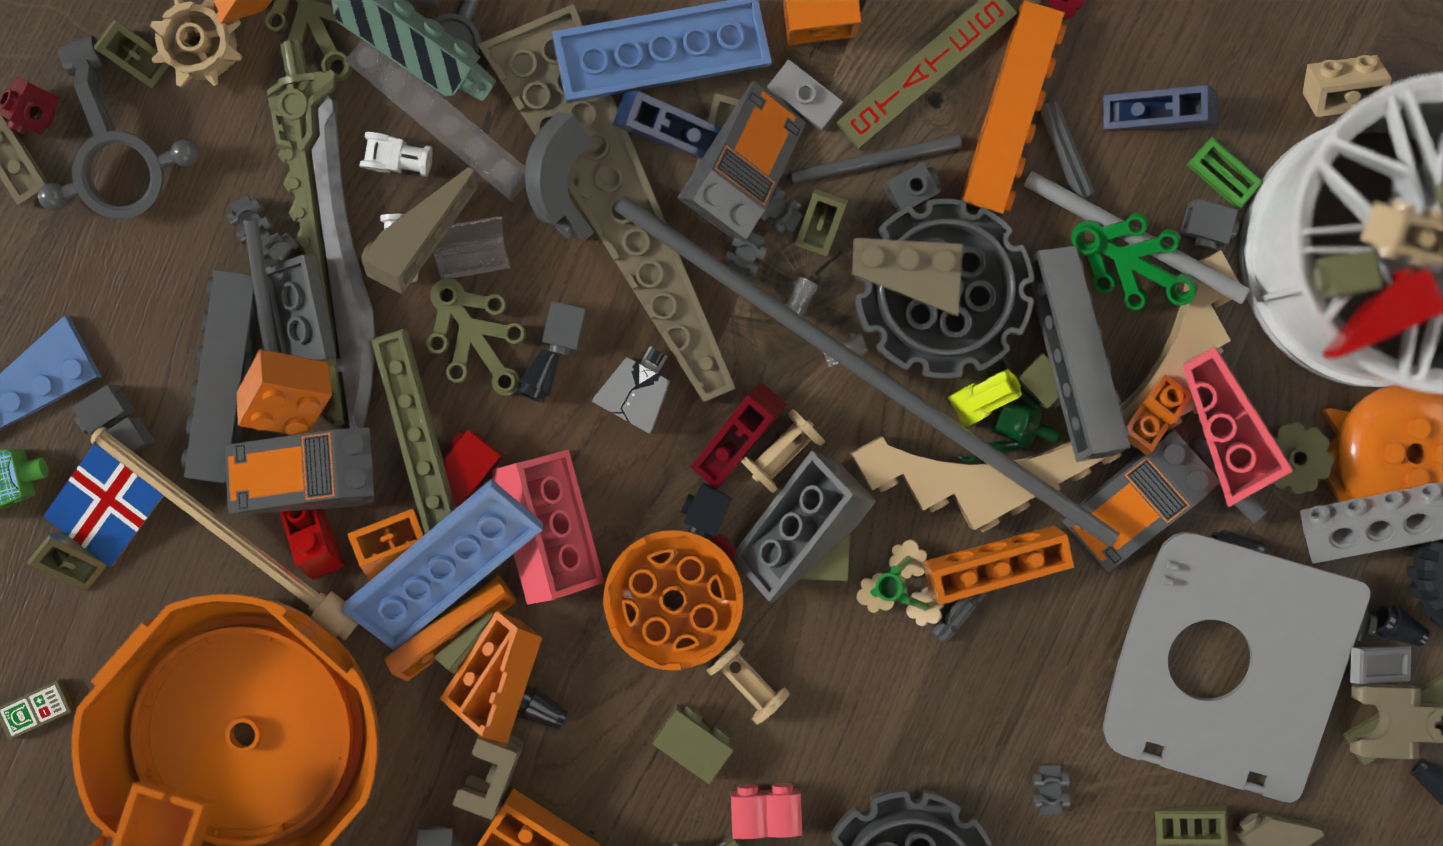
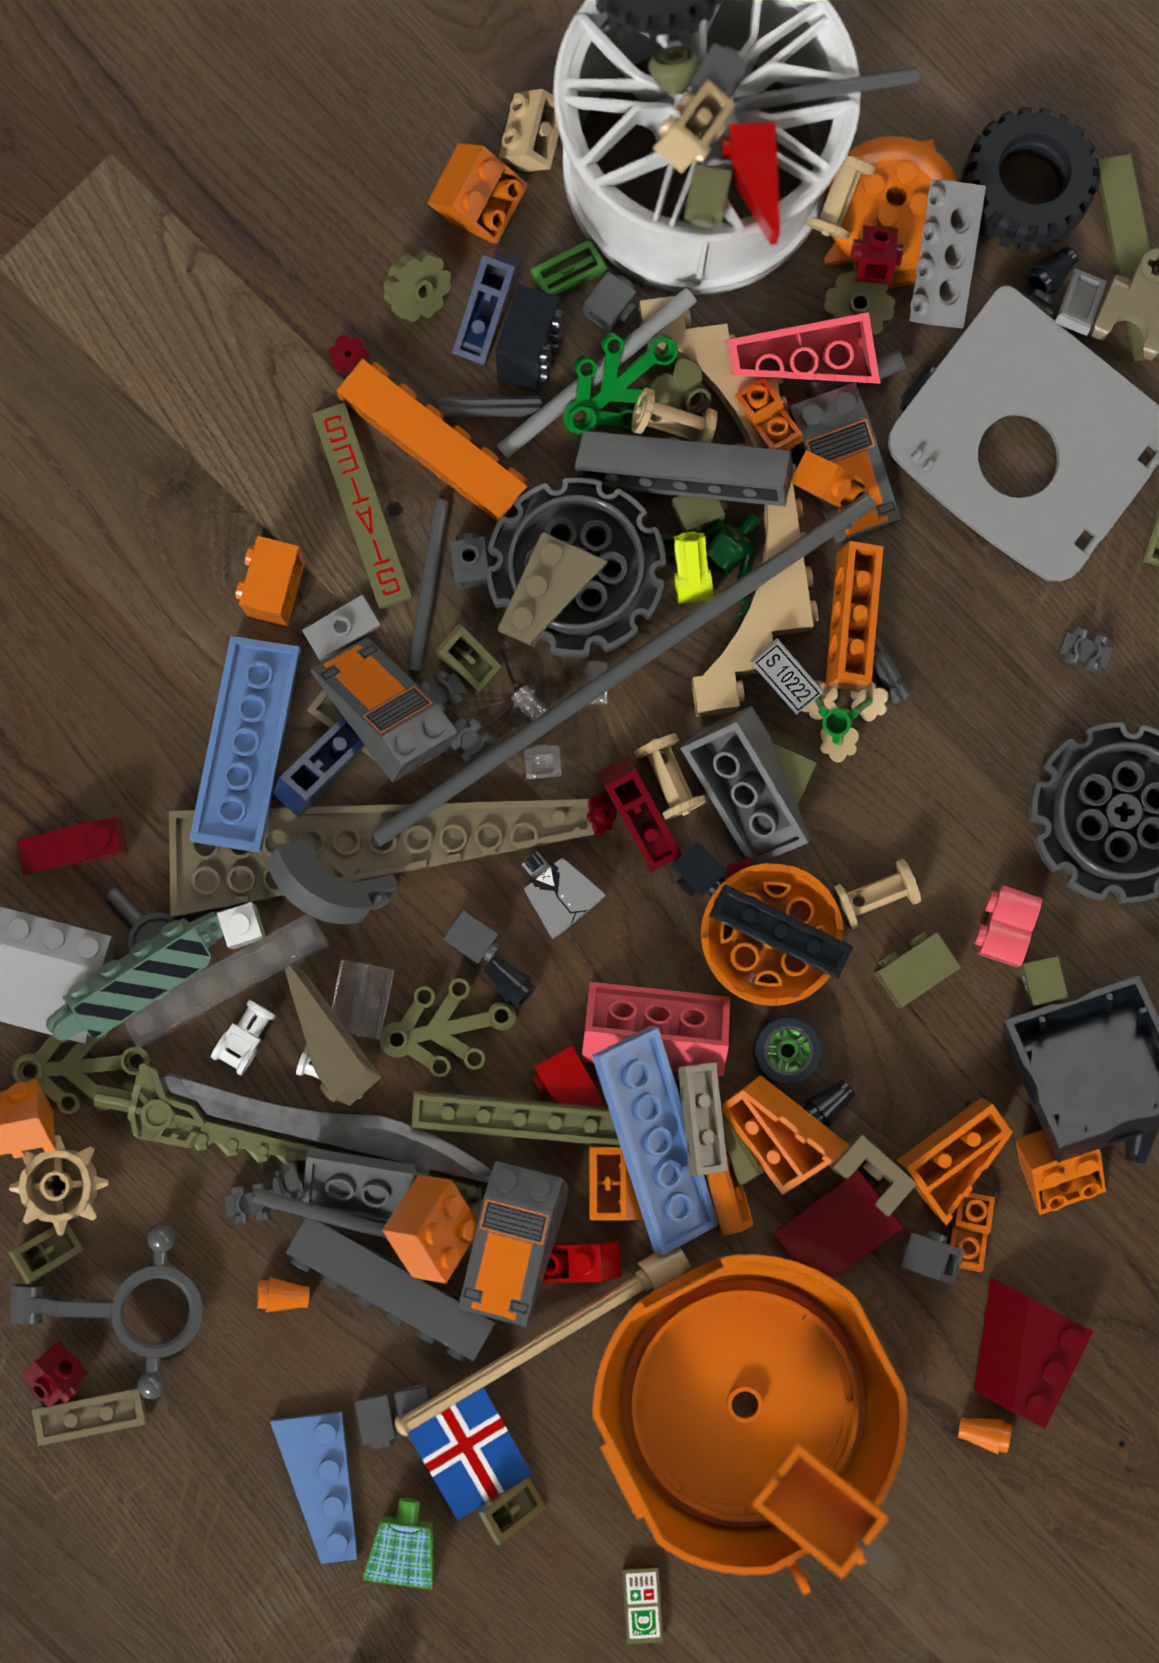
camera: 75 degrees left, 5 degrees down
(179, 281) = (281, 1295): none -> orange cone
(429, 759) = (838, 1227): none -> dark red tile
(477, 601) = (703, 1119): none -> dark tan plate
(494, 112) = (241, 925): none -> white brick
(579, 670) = (806, 1051): none -> wheel
(677, 607) = (780, 931): none -> black tile
(724, 400) = (600, 814): none -> dark red plant
(752, 328) = (542, 761): none -> clear plate
(917, 523) = (786, 676): none -> light grey tile
(1116, 492) = (828, 481): none -> orange slope
(1118, 324) = (671, 419): none -> tan hose
(1144, 160) = (528, 338): none -> black brick
(1147, 318) = (680, 386): none -> olive plate
(1154, 36) = (417, 285): none -> olive plant
(1267, 58) = (477, 192): none -> orange slope
(1352, 456) = (878, 247): none -> dark red brick
(1393, 401) = (839, 198): none -> tan hose

